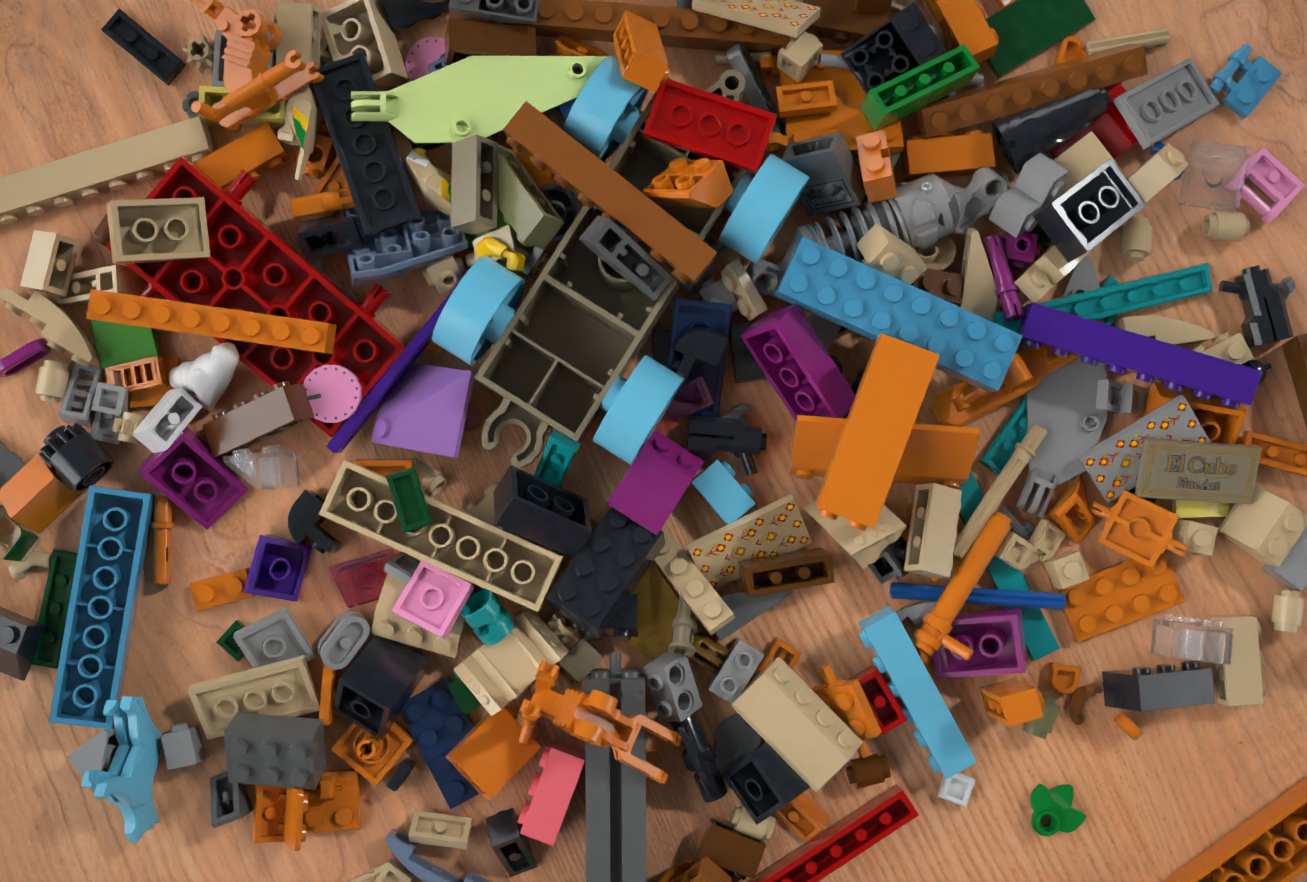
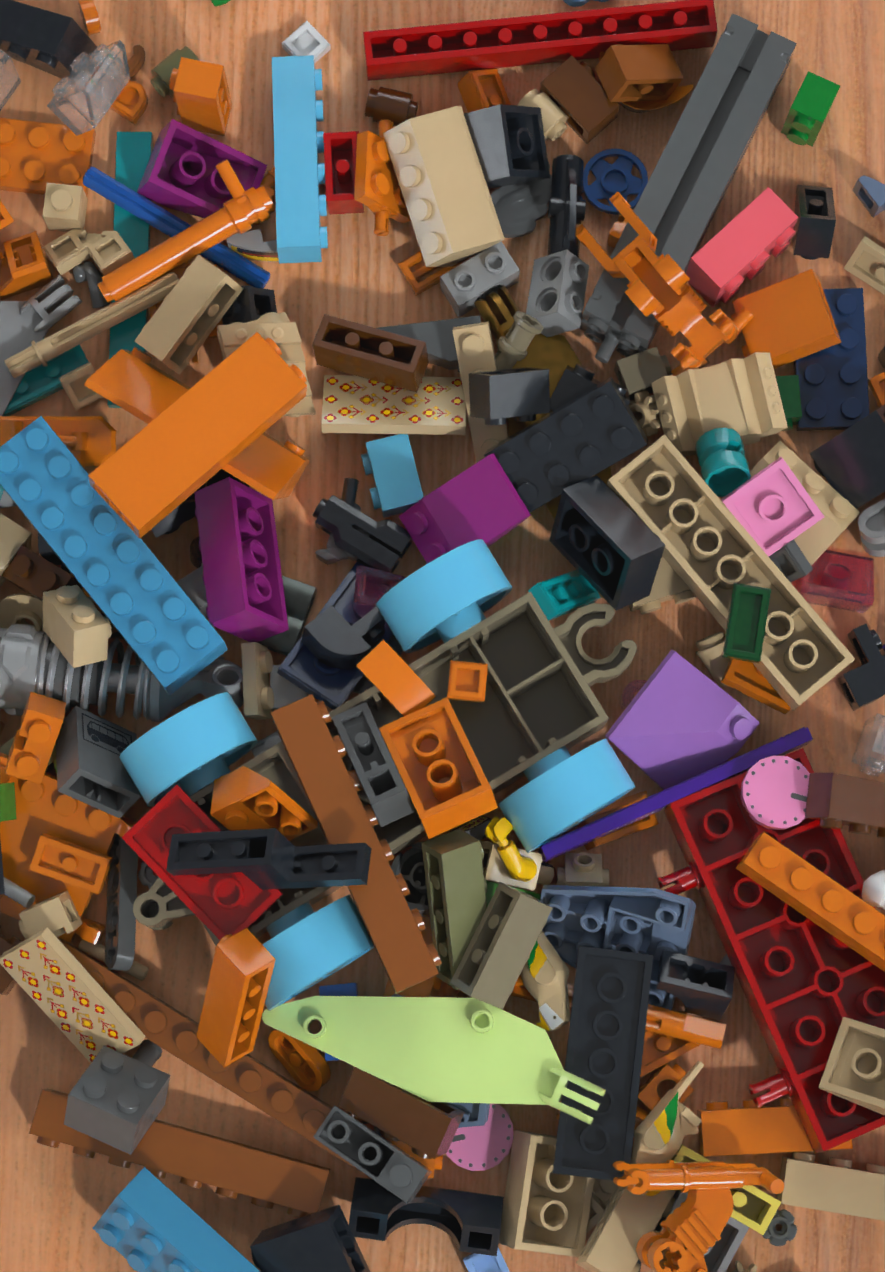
camera: 150 degrees left, 5 degrees down
(578, 276) = (438, 768): none -> orange slope
(589, 352) = (467, 681): none -> orange tile
(640, 324) = (395, 679): none -> orange slope
(662, 145) = (269, 859): none -> black bracket
(668, 588) = (509, 394): none -> black brick
(674, 800) = (613, 178): none -> blue wheel
(986, 446) = (74, 386): none -> tan tile
(1097, 667) = (90, 87): none -> clear slope

